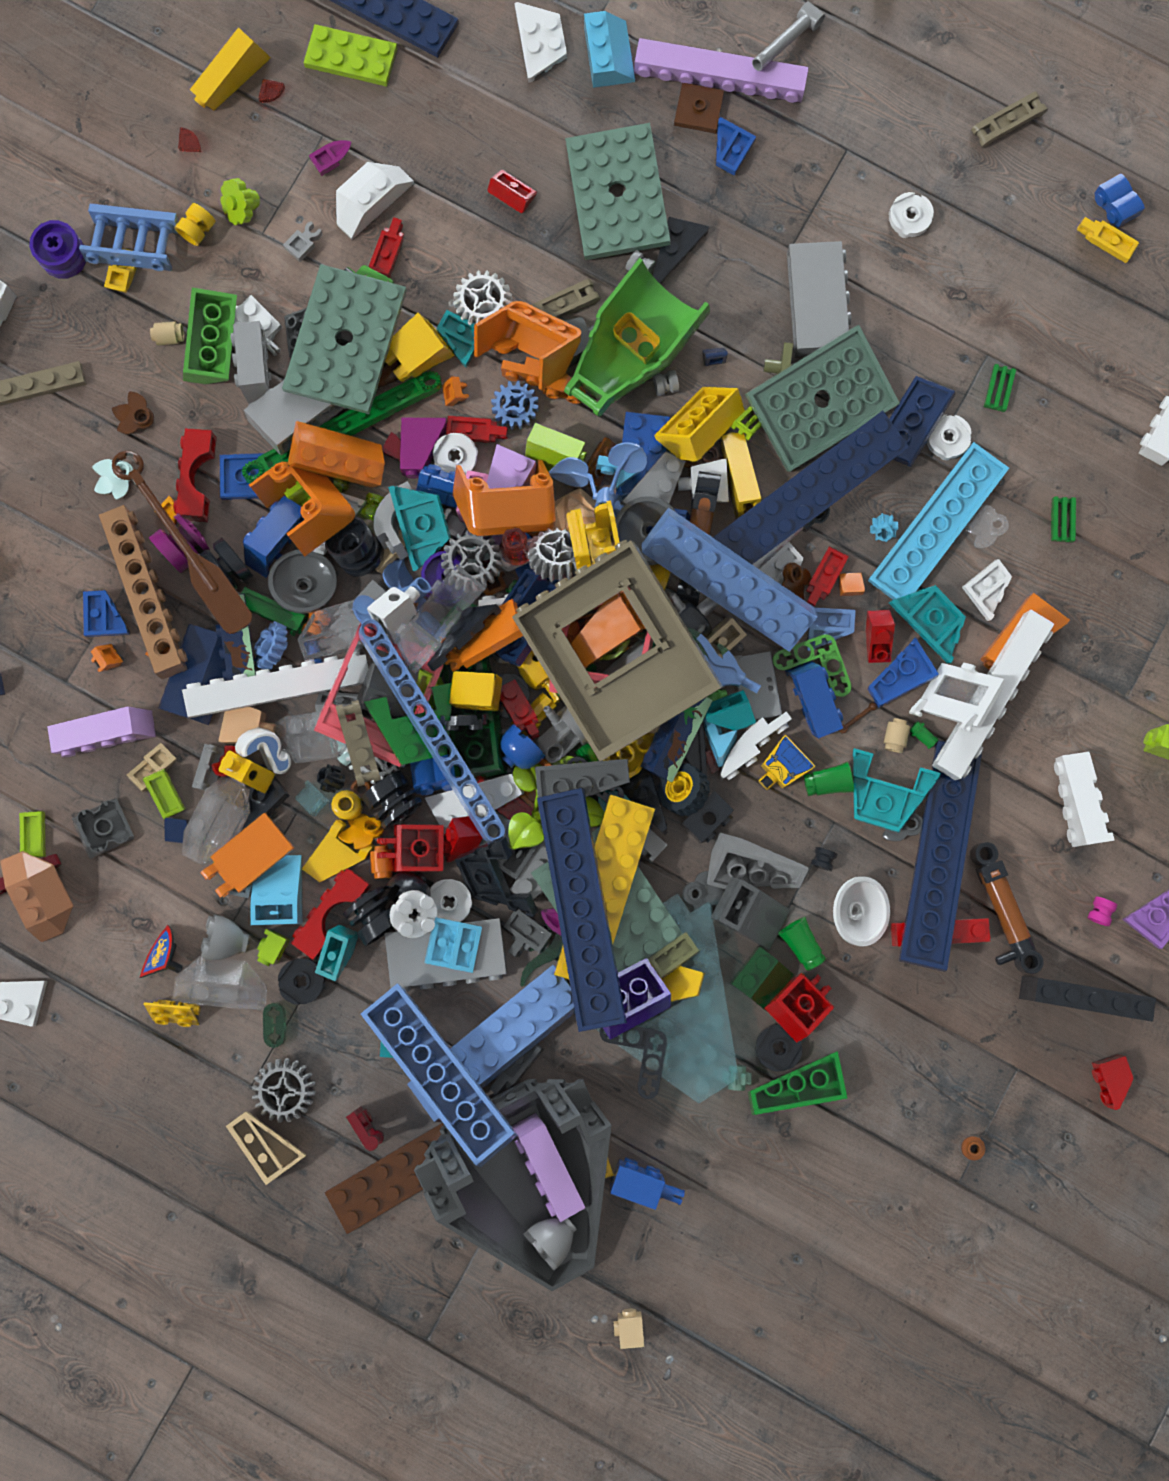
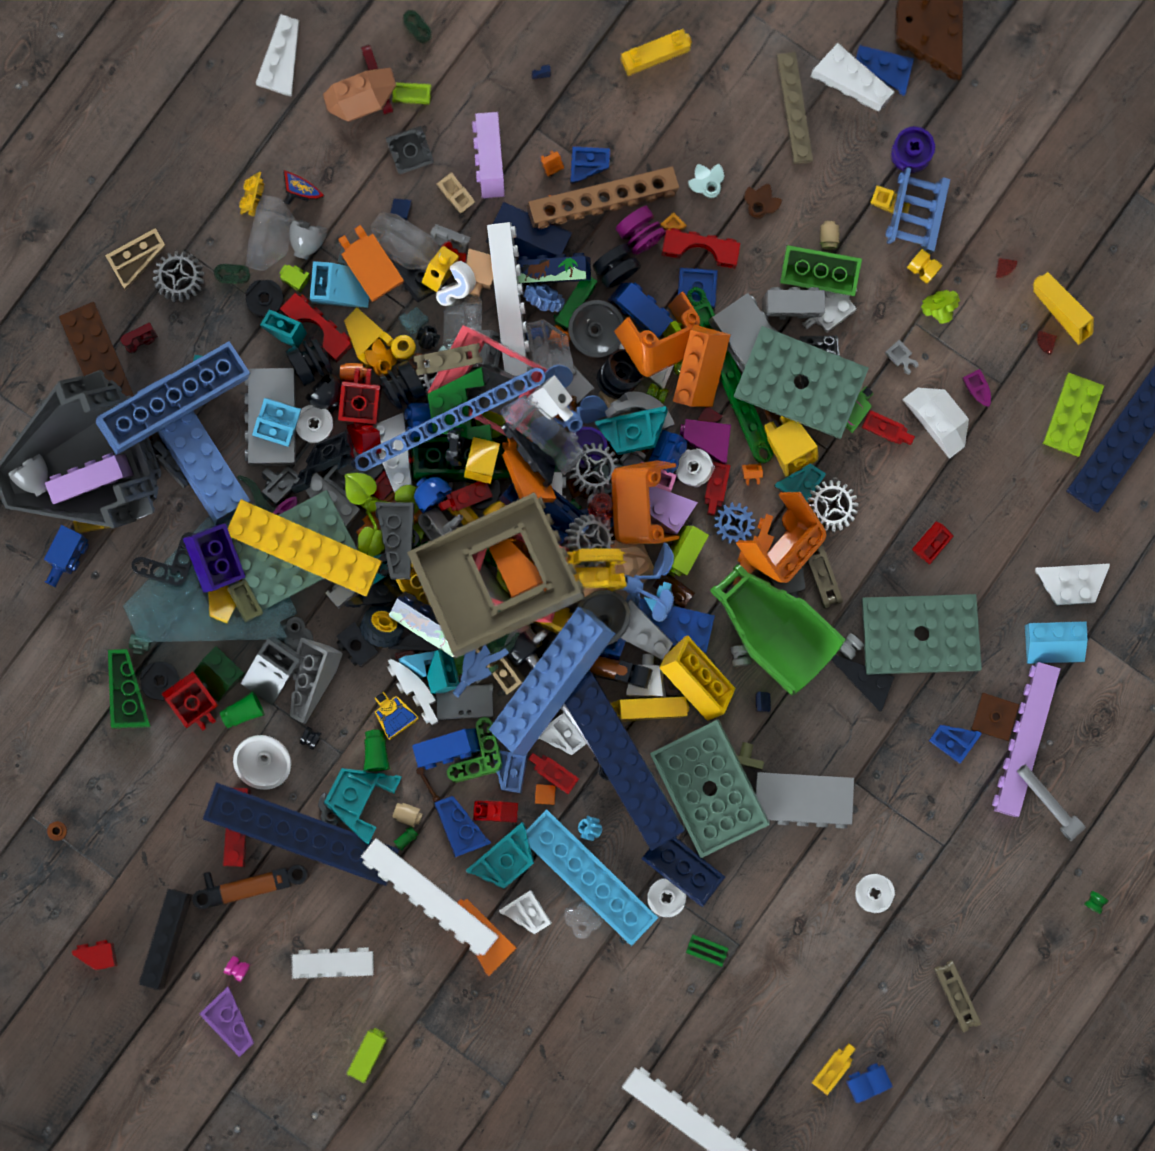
camera: 90 degrees right, 0 degrees up
(164, 793) = (432, 201): lime tile -> none
(205, 576) = (603, 249): reddish brown piece -> none
(404, 906) = (295, 396): white plate -> none
(581, 910) = (289, 524): dark blue plate -> none
(632, 321) = (777, 622): yellow piece -> none
(745, 428) = (688, 715): lime tile -> none
(795, 578) = (548, 745): reddish brown plate -> none
(960, 695) = (432, 867): white piece -> none
(1072, 519) = (565, 986): green tile -> none

